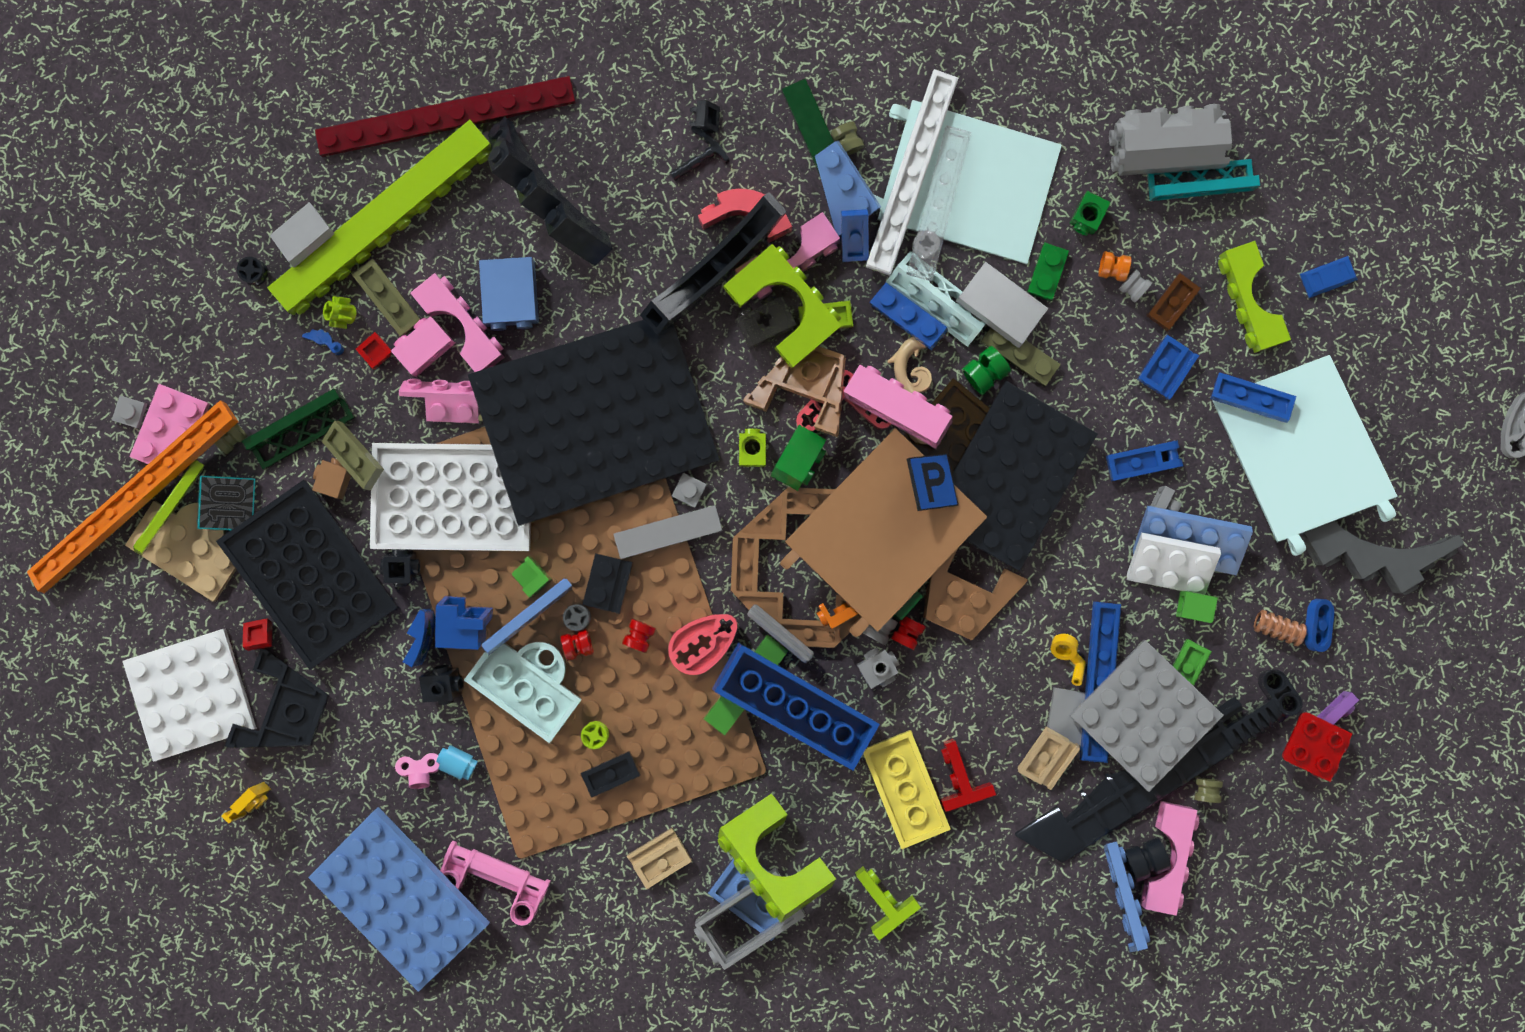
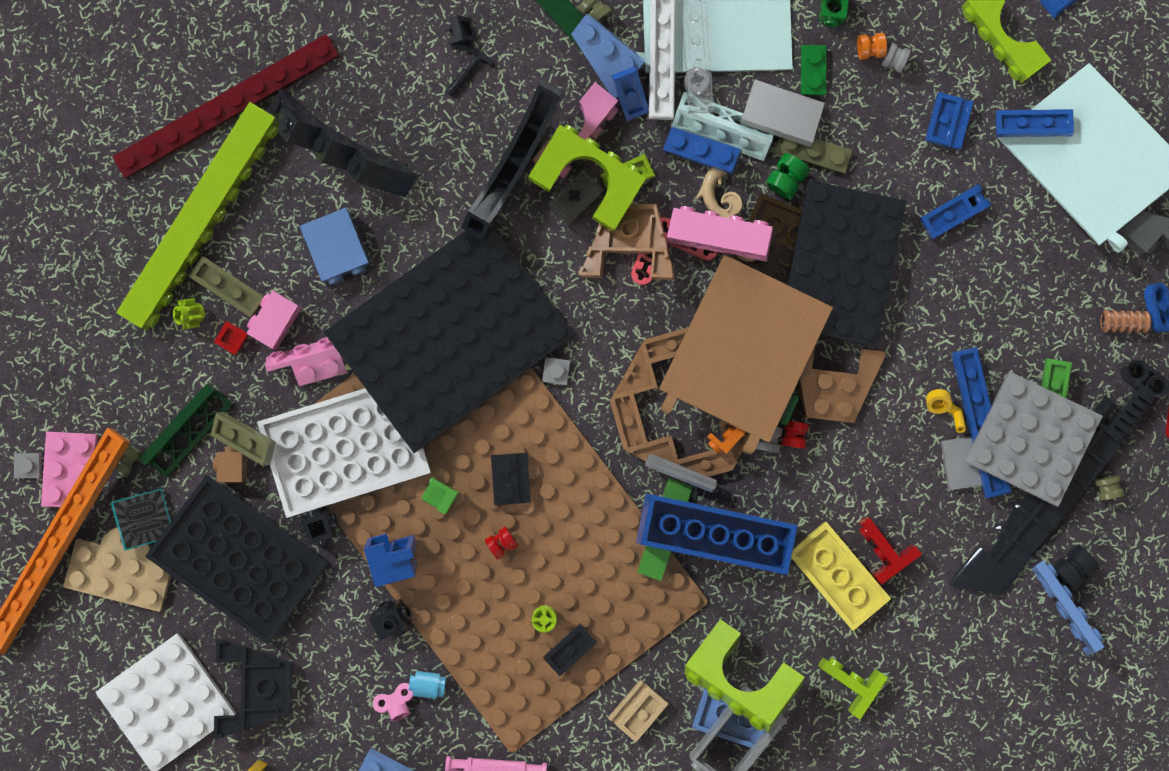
camera: 20 degrees left, 0 degrees up
(168, 507) = (91, 540): lime tile -> none
(246, 269) = (91, 302): black wheel -> none
(257, 634) = (209, 628): red plate -> none
(302, 234) = (131, 254): light grey tile -> none
(324, 338) = (181, 342): blue piece -> none
(422, 630) = (358, 576): blue slope -> none
(437, 299) = (273, 273): bright pink arch -> none
(526, 616) = (448, 532): medium blue tile -> none
(526, 686) = (467, 595): light aqua plate -> none
(572, 618) = (491, 517): dark grey wheel -> none
(638, 635) = (554, 516): red wheel -> none
(667, 532) = (549, 415): light grey tile -> none
(690, 634) = (622, 515): coral piece -> none
(739, 202) = (517, 98): coral arch -> none
(755, 460) = (605, 325): lime brick -> none
(798, 457) = (645, 310): green brick -> none
(868, 667) = (769, 476): light grey brick -> none
(932, 482) = (774, 292): blue piece -> none
(1048, 758) = (957, 506): tan plate -> none
(1163, 499) = (985, 242): light grey tile -> none
(1164, 890) = (1100, 590): bright pink arch -> none
(1173, 302) = (934, 61): reddish brown plate -> none
(1173, 563) = (1012, 295): white plate -> none
(1196, 606) = (1045, 327): bright green panel -> none
(1227, 536) = (1022, 268): medium blue plate -> none

